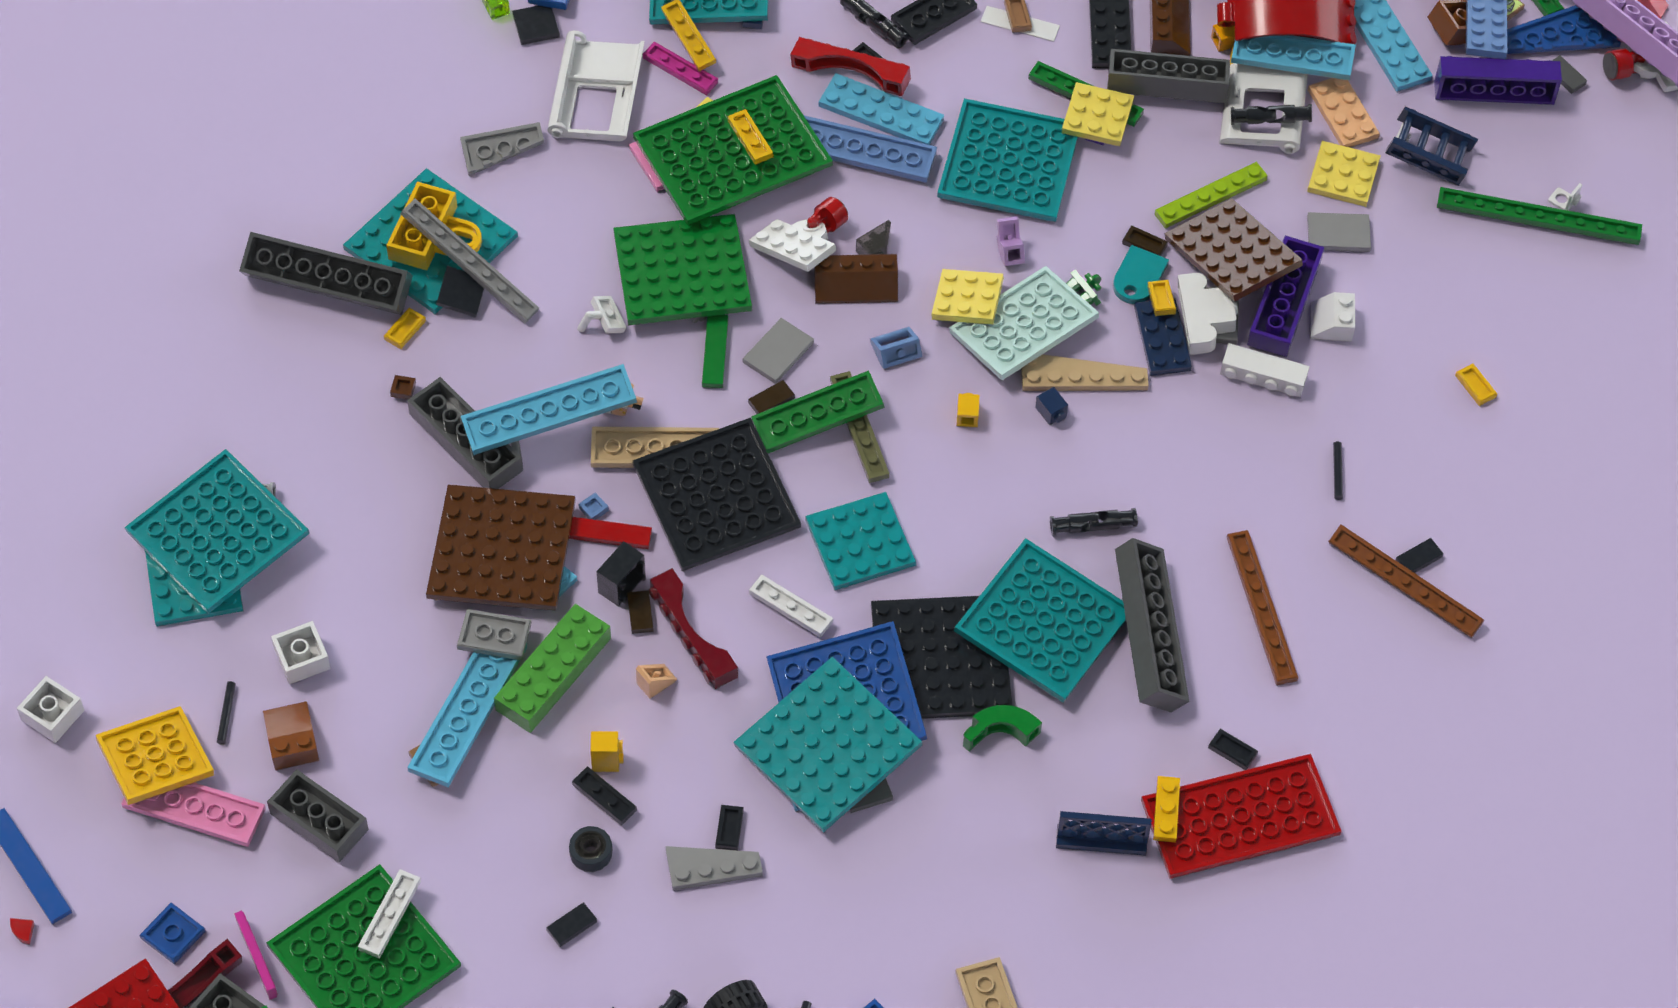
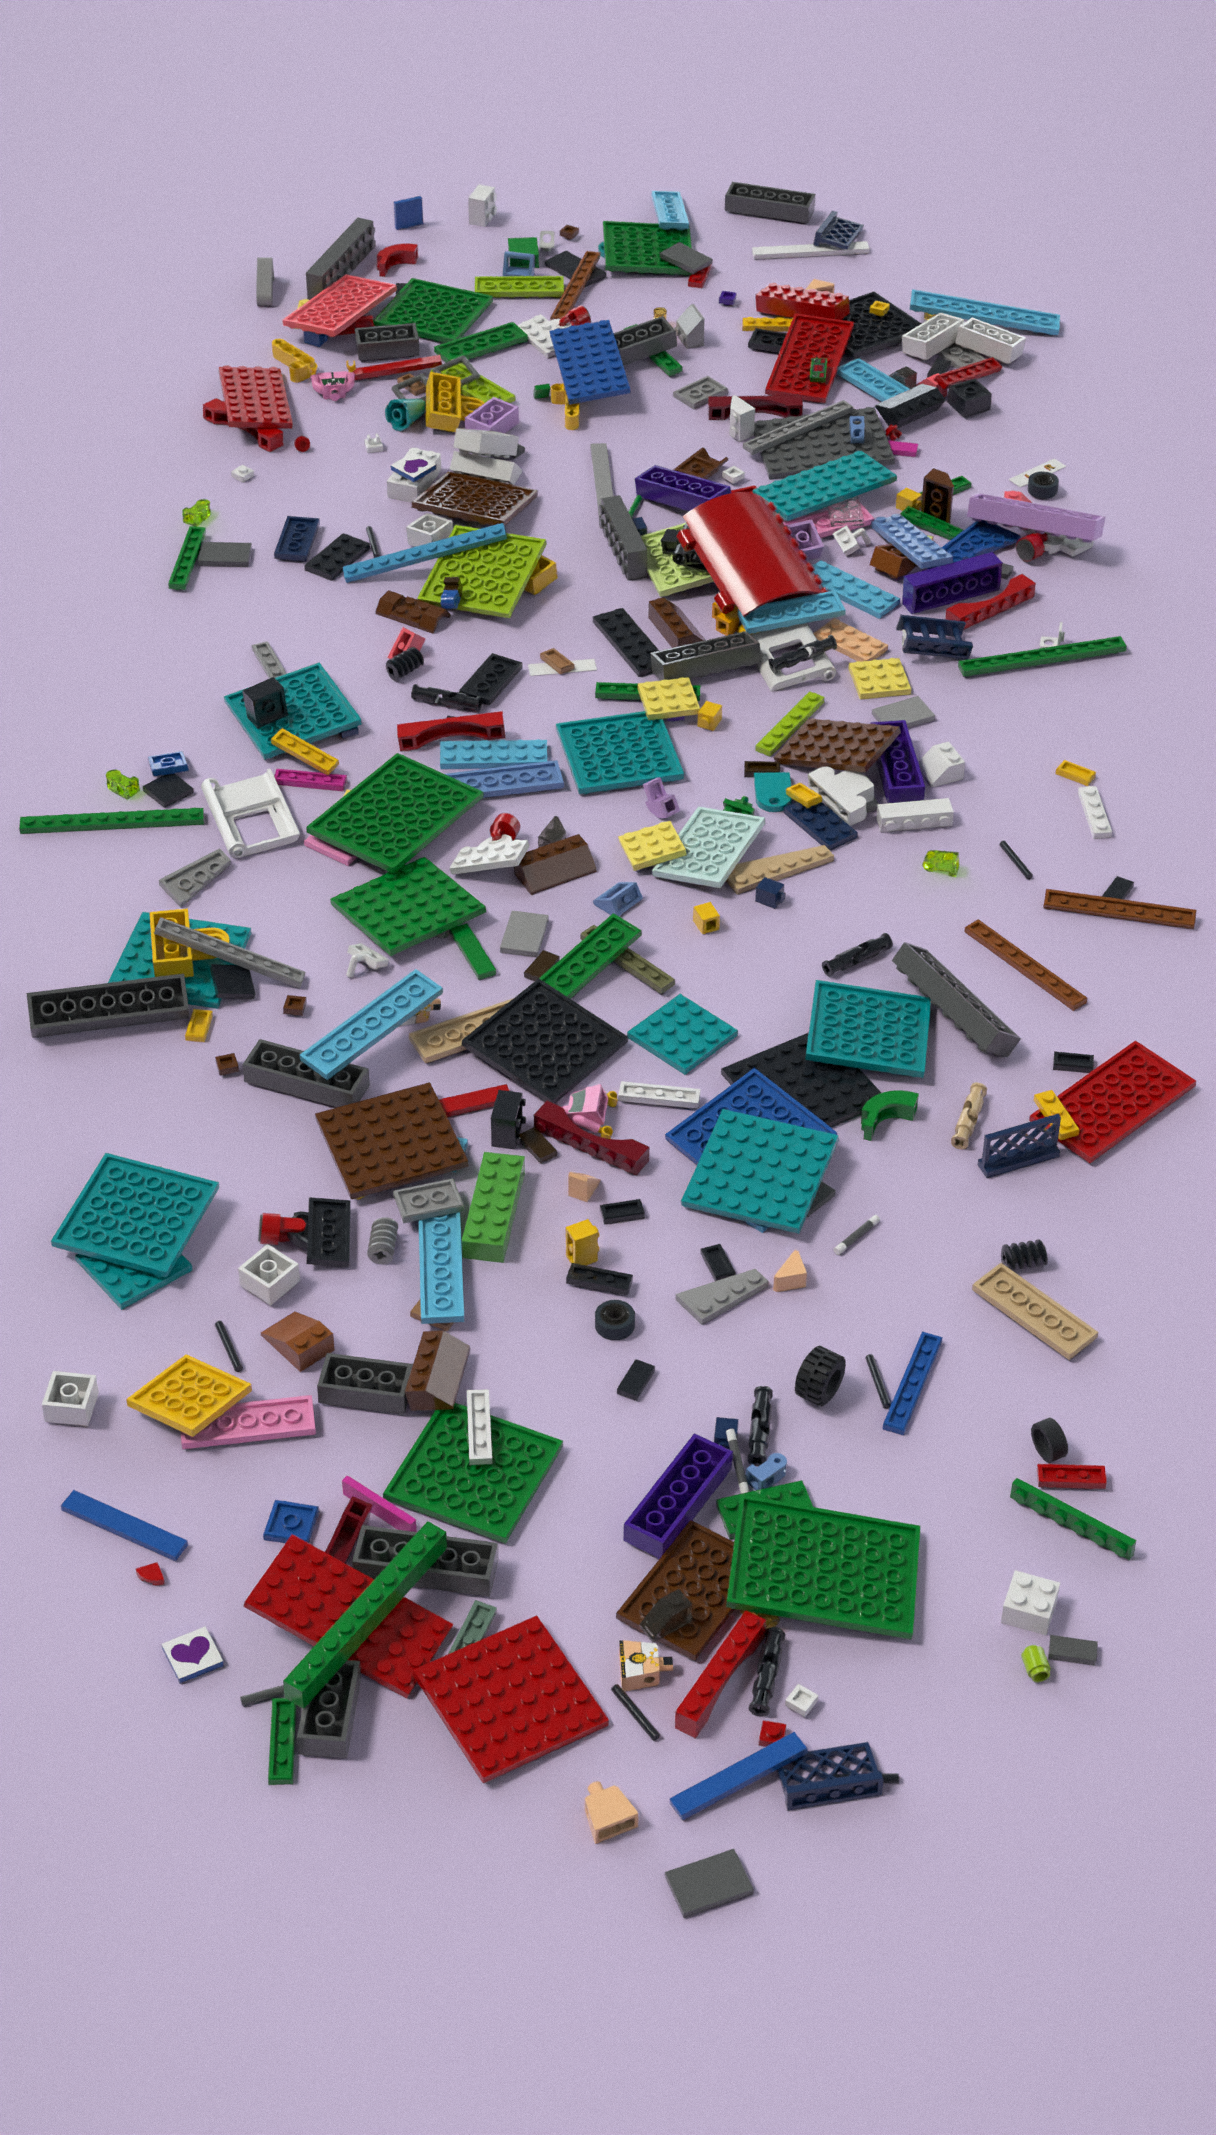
camera: 25 degrees left, 15 degrees down
(374, 622) = (320, 1230): none -> black plate
(388, 833) = (436, 1371): none -> slope
(426, 659) = (382, 1240): none -> light grey piece
(461, 41) = (111, 820): none -> green plate
(505, 344) = (294, 1005): none -> reddish brown plate
(593, 507) = (447, 1088): medium blue tile -> none
(674, 726) = (622, 1211): none -> black tile
(709, 594) = (589, 1107): none -> bright pink torso
(750, 136) = (407, 795): yellow plate -> none
(788, 874) = (791, 1274): none -> light nougat slope
(884, 856) = (856, 1234): none -> dark grey bar
(1028, 958) = (1023, 1253): none -> black piece
(1088, 761) = (969, 1116): none -> tan piece
(1129, 152) = (709, 715): none -> yellow brick
(1255, 442) = (942, 861): none -> clear neon green leg
(1462, 445) = (1094, 812): none -> white plate
(1490, 127) = (1018, 590): none -> red arch

